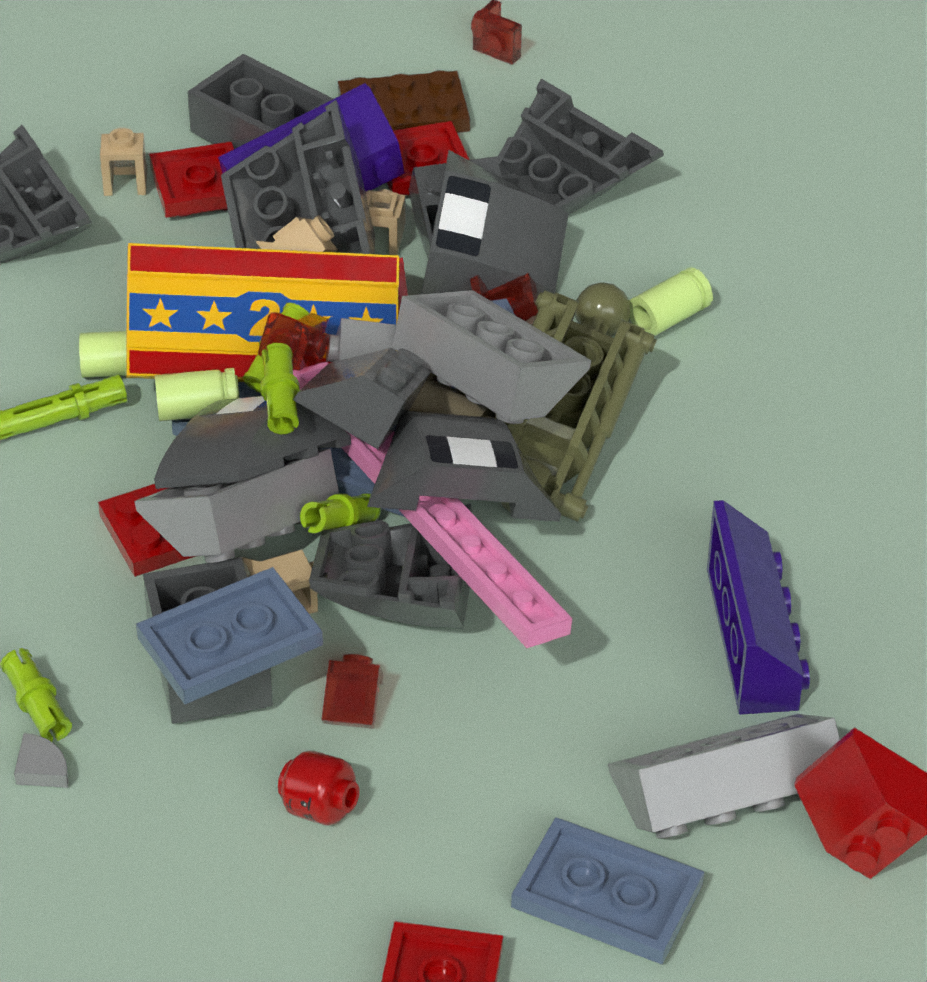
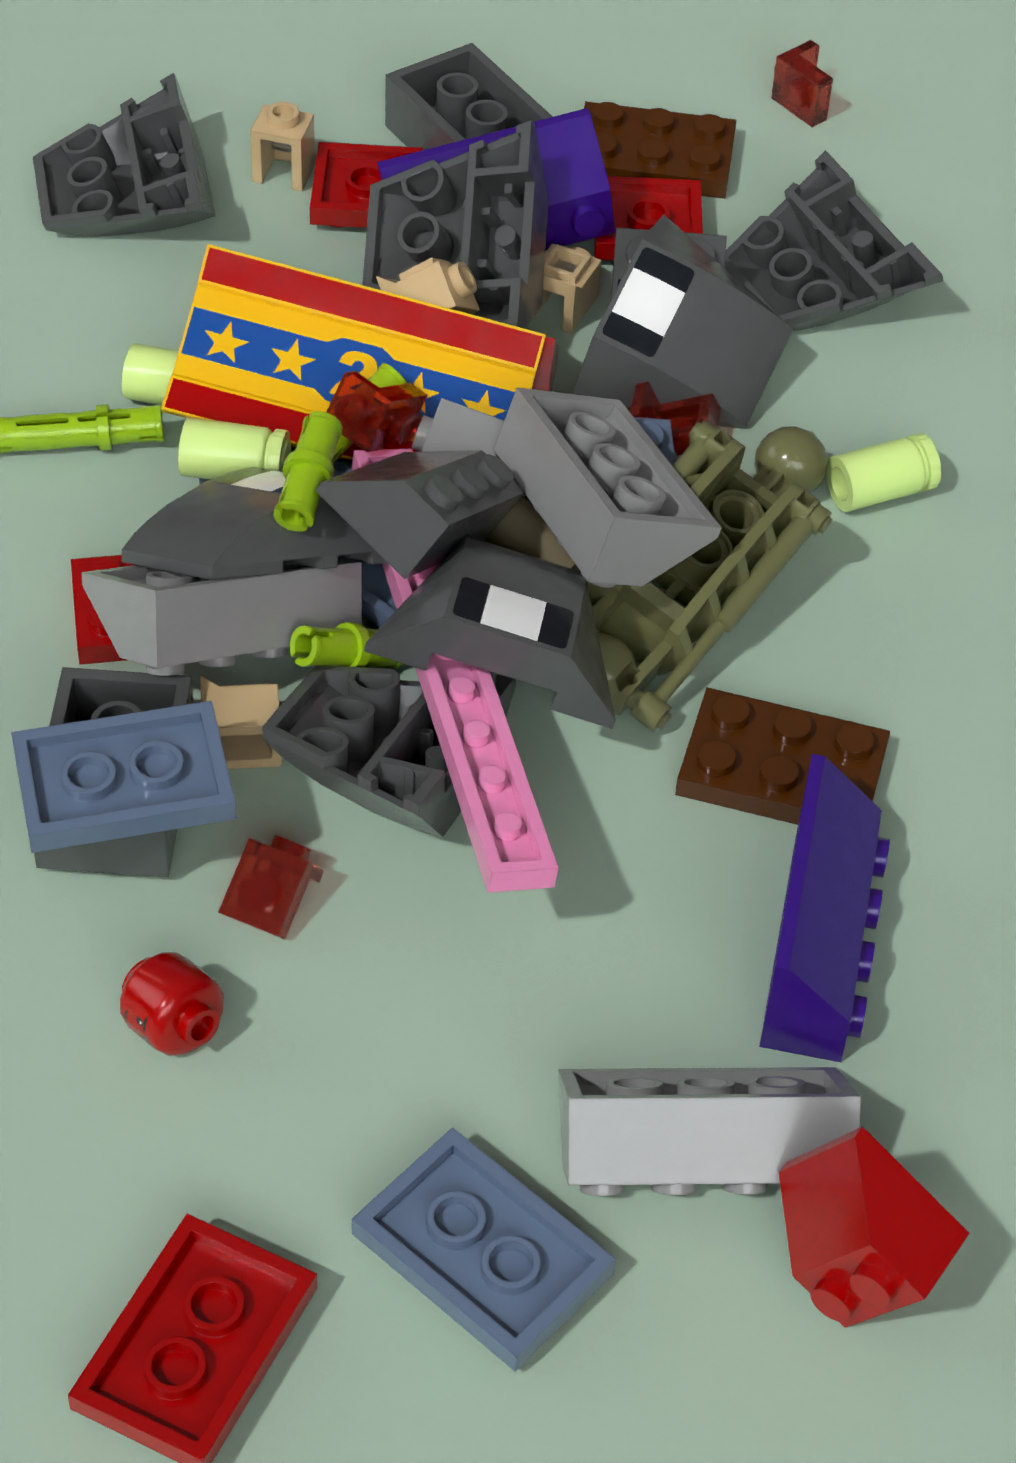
camera: 15 degrees right, 5 degrees up
(666, 517) = (760, 753): none -> reddish brown plate

